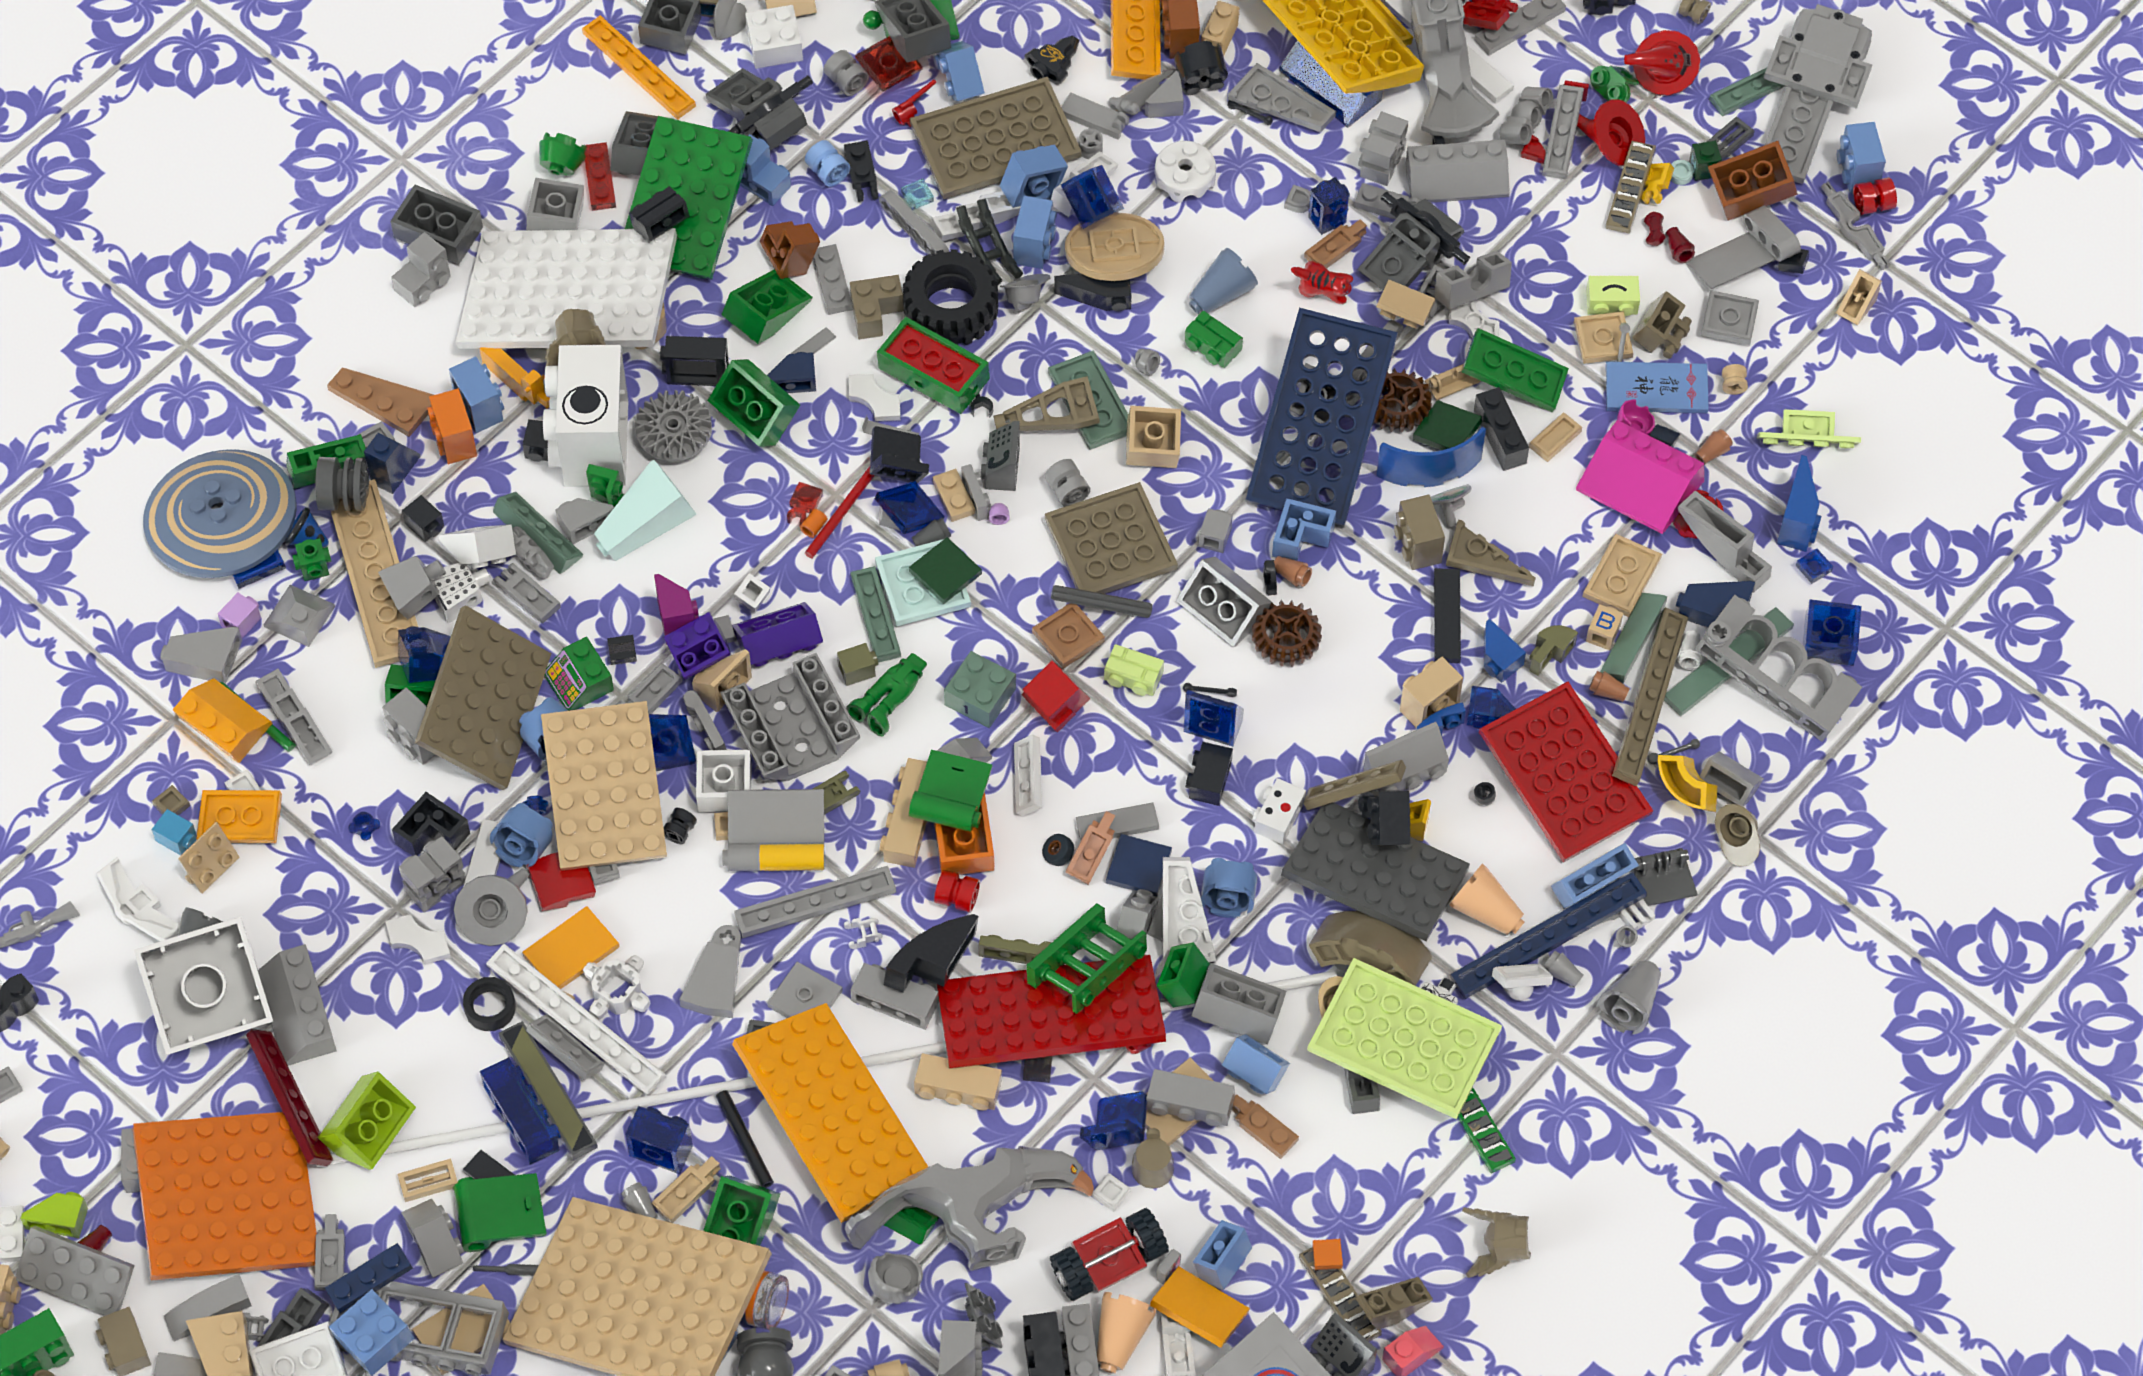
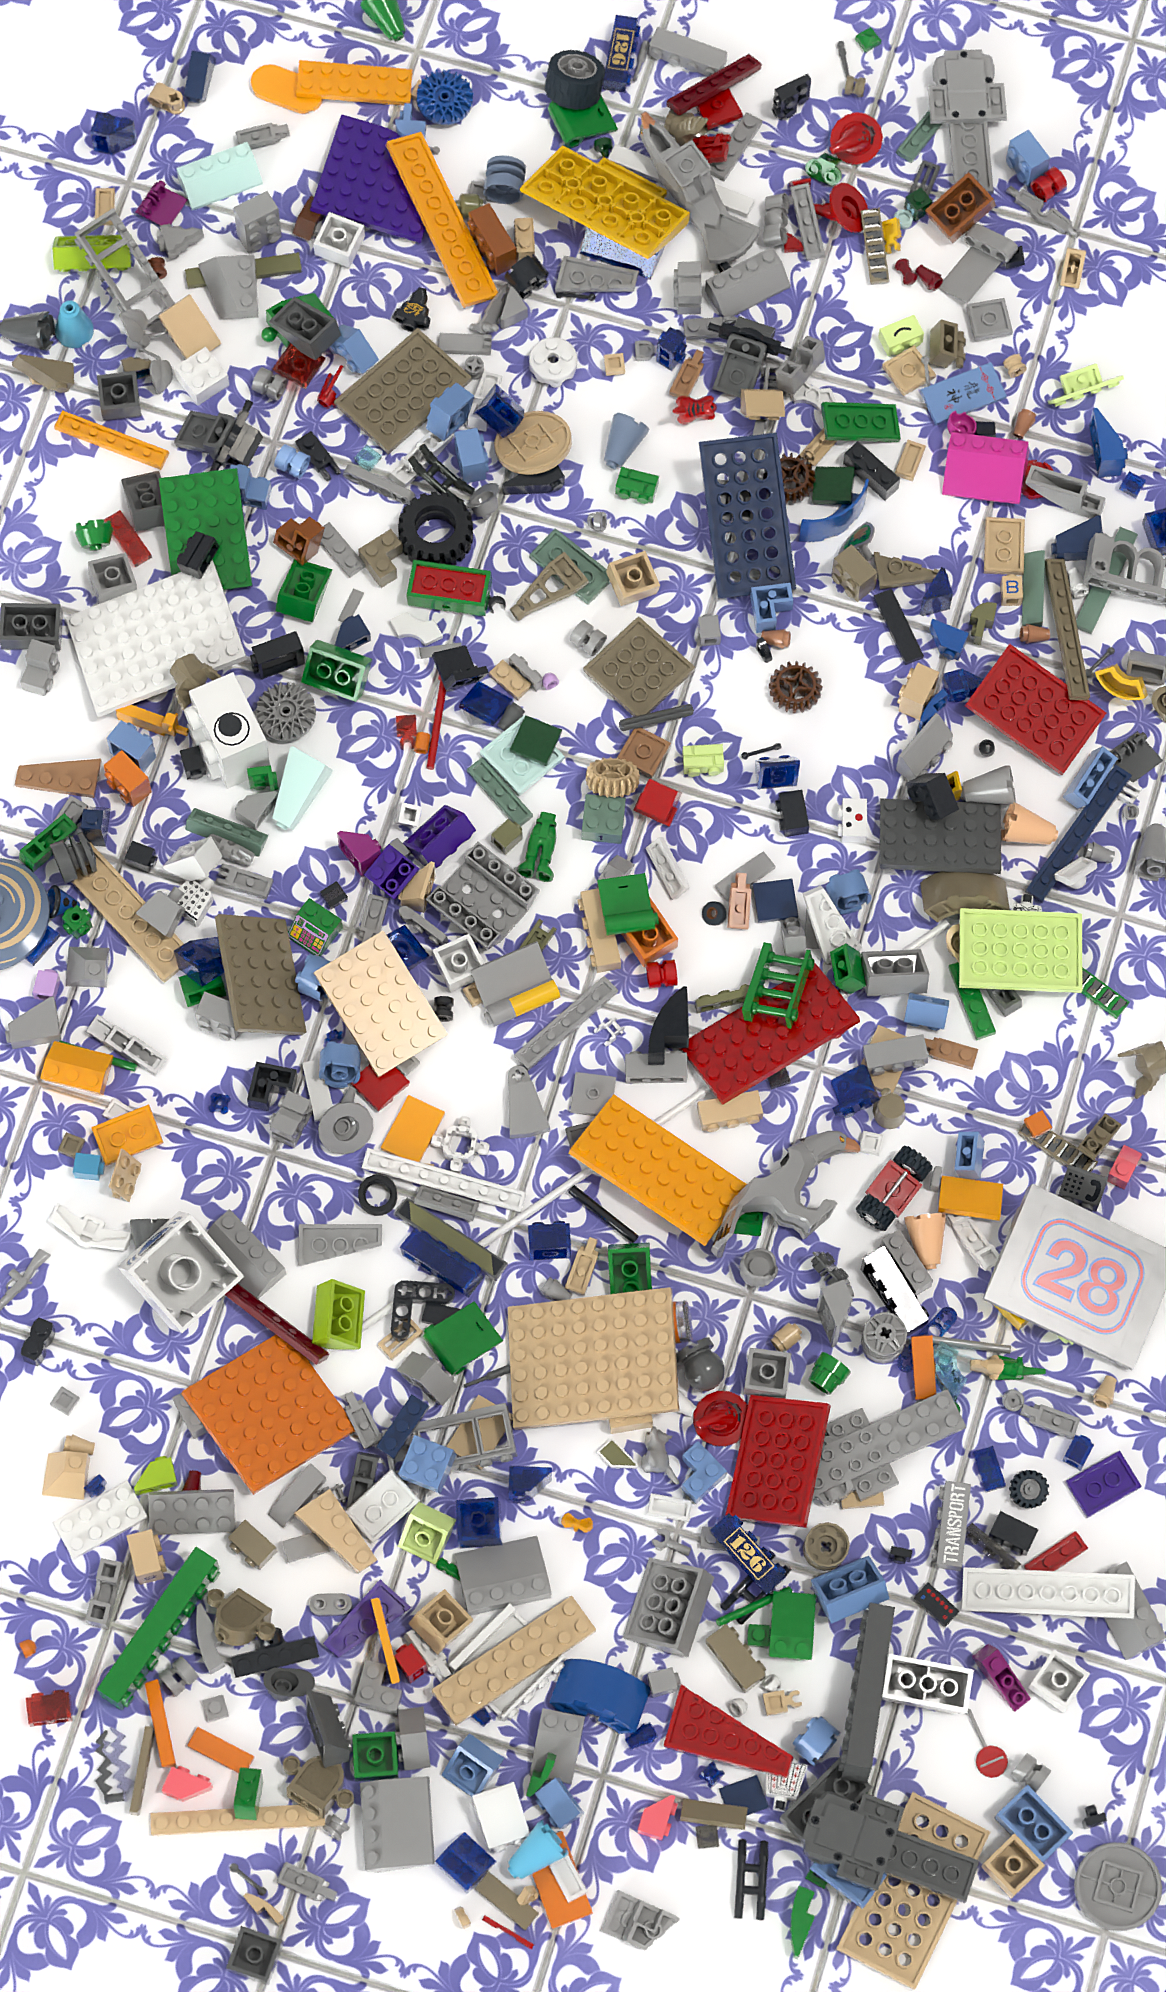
camera: 25 degrees left, 10 degrees up
(408, 934) = (310, 1170): white tile -> none
(410, 1034) = (329, 1241): none -> light grey wing
(458, 1138) = (408, 1299): none -> black beam
(1002, 458) = (533, 638): dark grey slope -> none
(1012, 645) = (612, 777): none -> tan gear
(1222, 600) = (740, 681): light grey slope -> none
(1255, 200) = (614, 364): none -> tan plate
(1319, 1091) = (974, 1007): none -> green plate
(1354, 784) = (900, 781): dark tan tile -> none
(1466, 838) = (991, 787): none -> light grey cone
(1506, 594) = (938, 595): none -> clear blue slope

